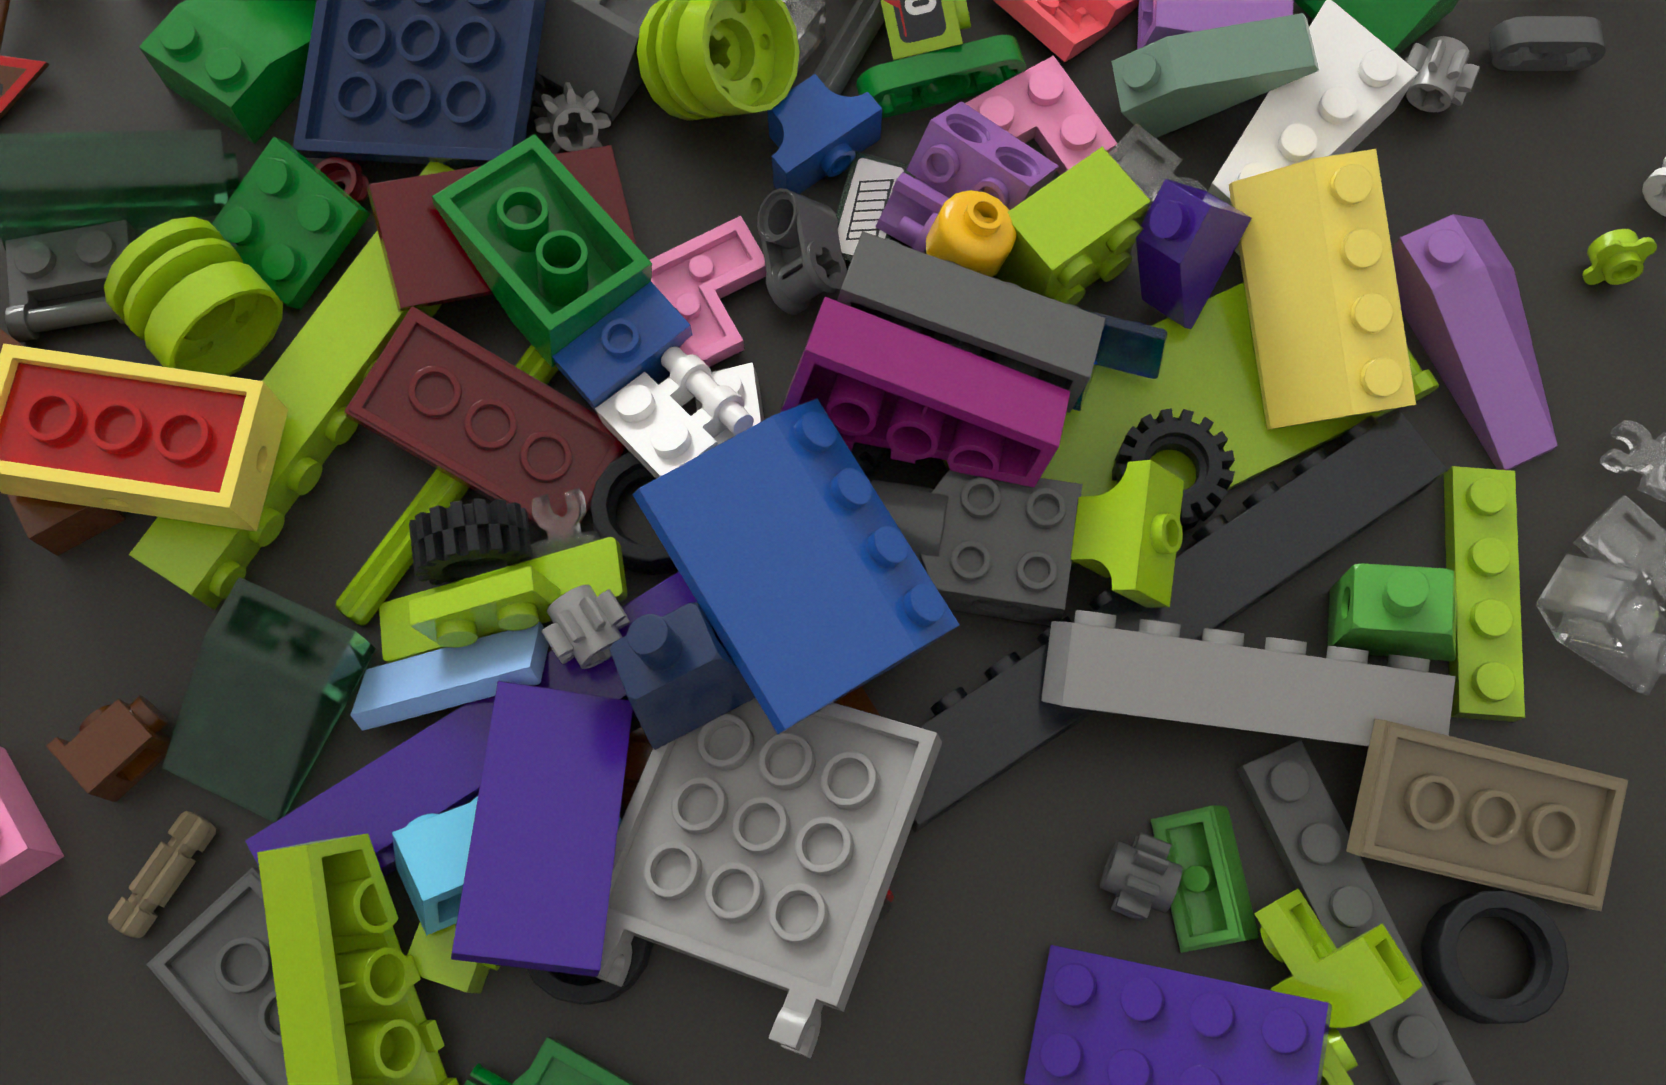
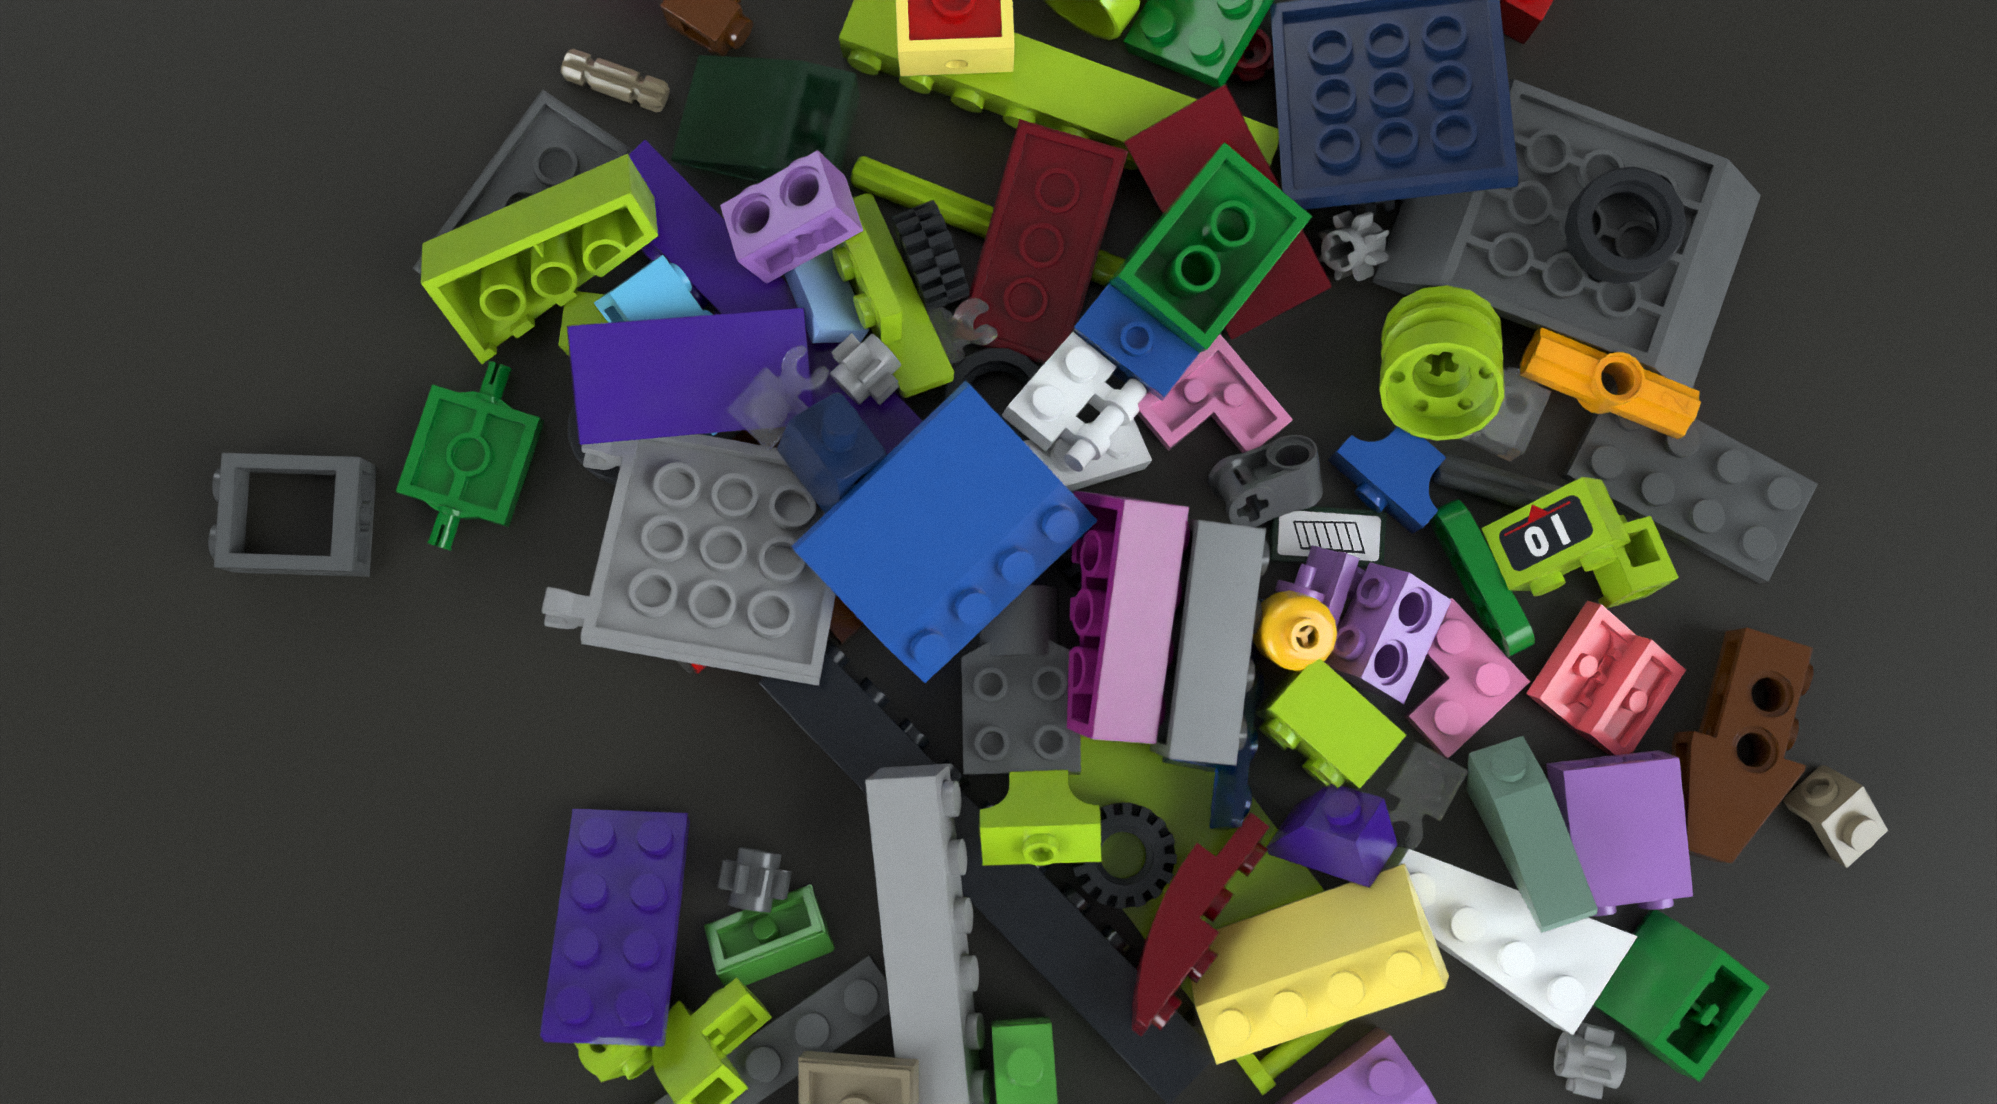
camera: 75 degrees right, 10 degrees up
(404, 671) = (791, 217): none -> medium lavender brick
(600, 738) = (772, 401): none -> clear plate
(1274, 422) = (1178, 936): none -> dark red slope

